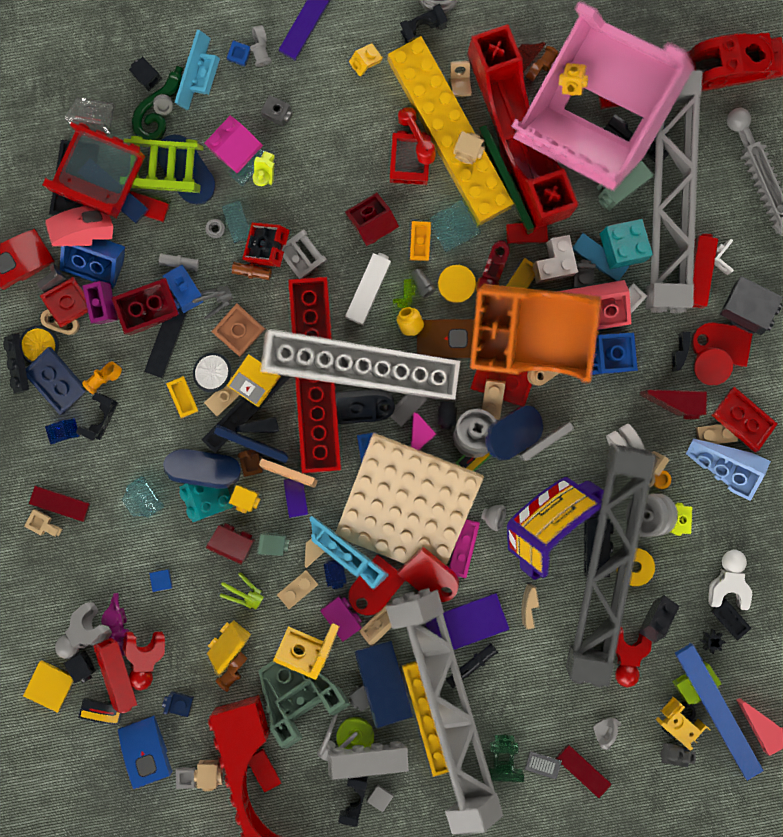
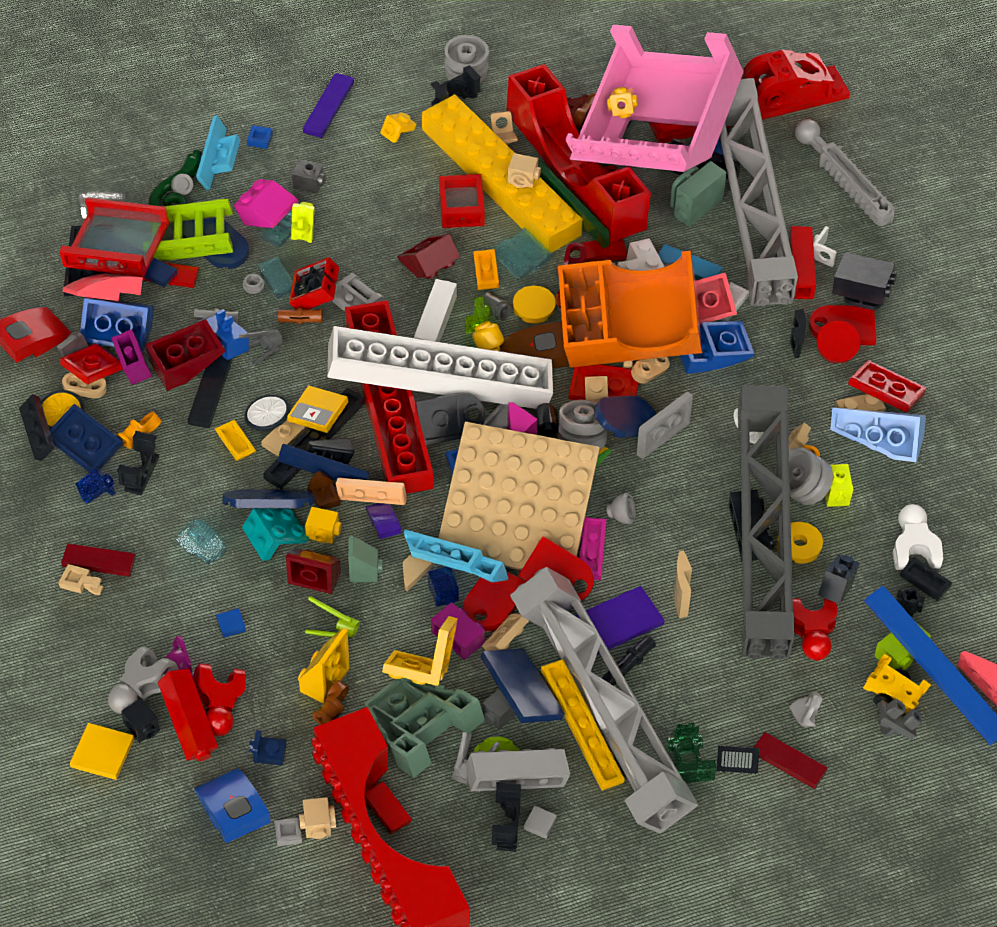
camera: 10 degrees left, 35 degrees down
(99, 712) = (171, 766): slope -> none
(145, 73) = (160, 160): black brick -> none
(238, 330) = (292, 372): nougat tile -> none
(259, 47) = (281, 127): light grey connector -> none
(297, 589) = (399, 613): tan plate -> none
(424, 149) = (476, 181): red piece -> none
(548, 520) = (668, 512): panel -> none
(626, 244) = (713, 243): teal brick -> none
(681, 403) = (803, 371): dark red slope -> none

